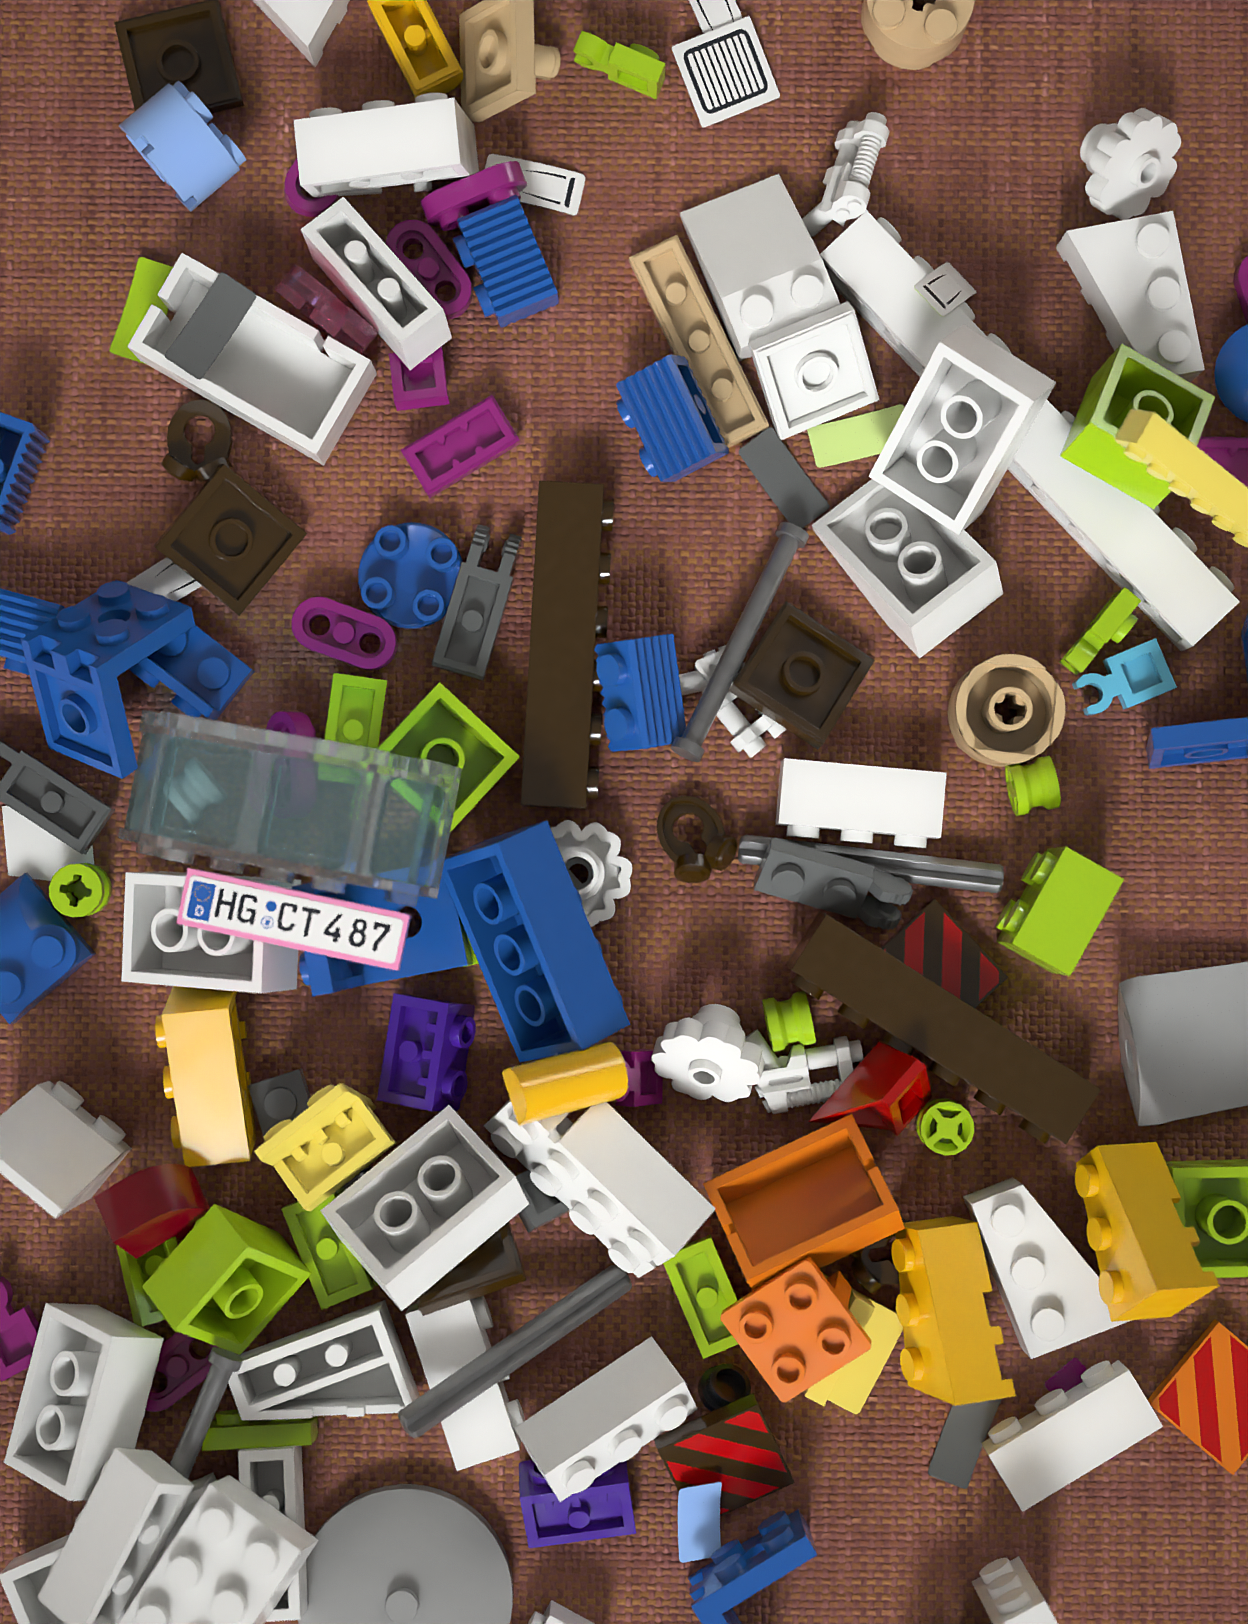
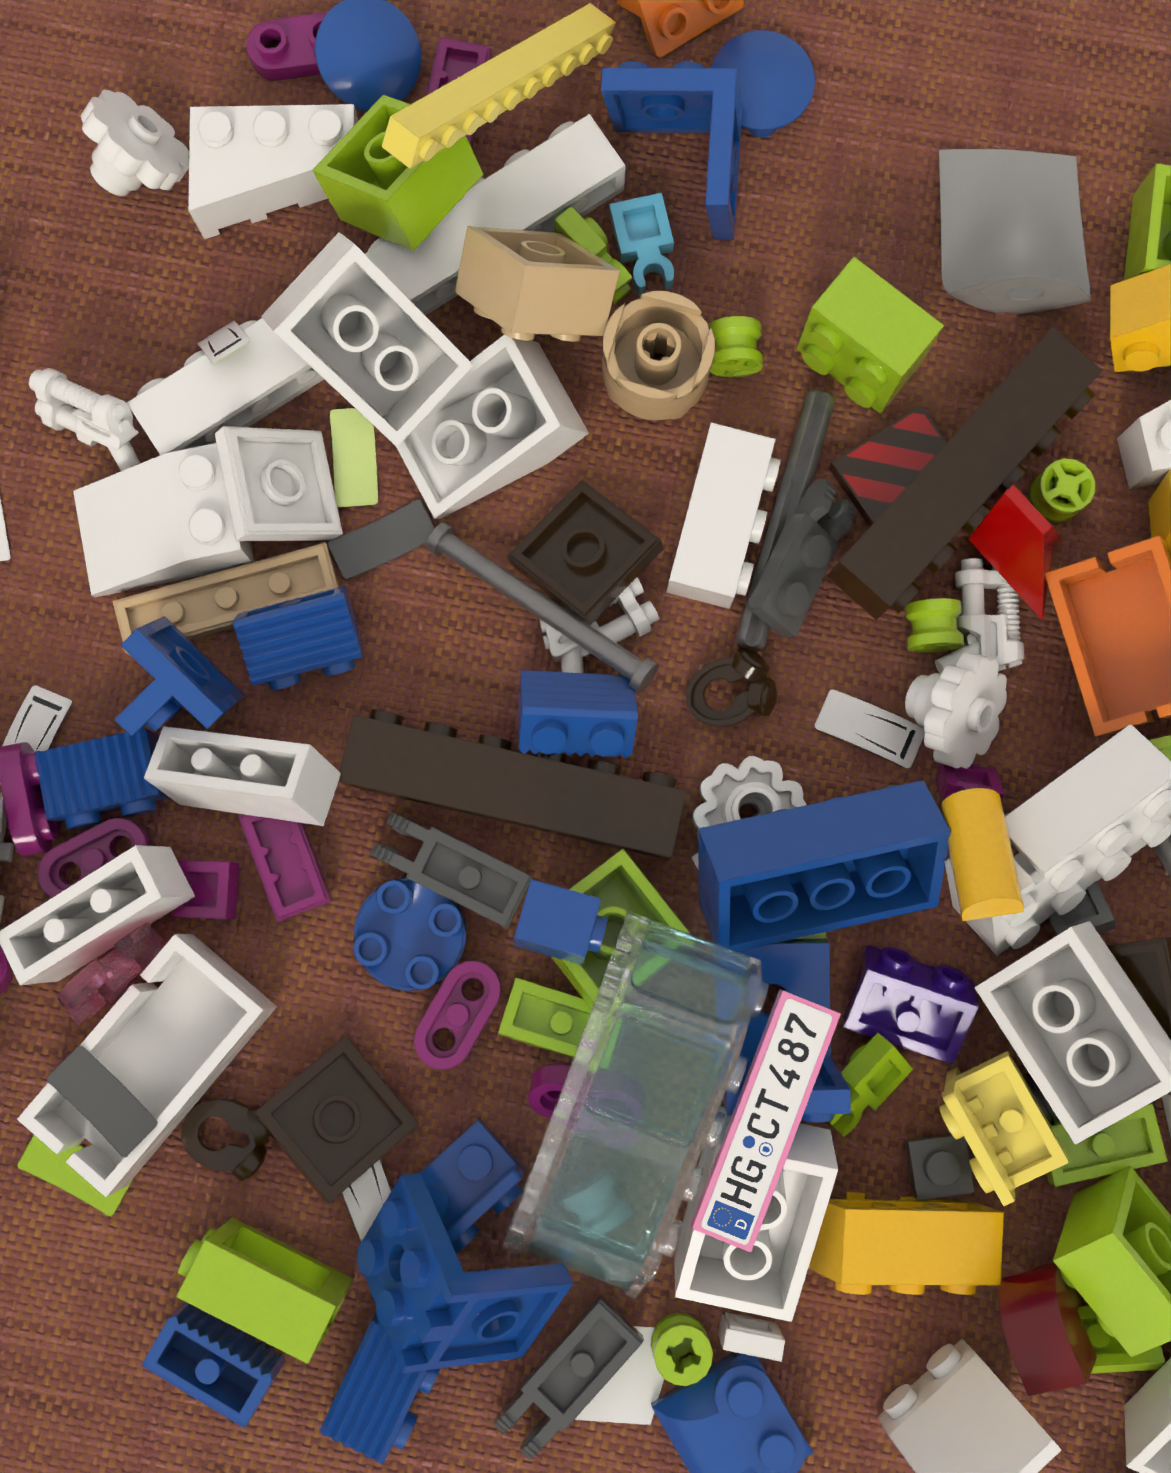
camera: 80 degrees left, 5 degrees down
(72, 503) = (263, 1287): none -> lime window
(101, 951) = (751, 1336): none -> white tile
(348, 1022) = (871, 1076): none -> lime plate
(438, 707) = (560, 923): none -> blue brick
(527, 393) = (243, 775): none -> white brick
(608, 317) = (181, 680): none -> blue bracket
(681, 975) = (870, 728): none -> white sticker
(1050, 579) = (536, 283): none -> tan brick

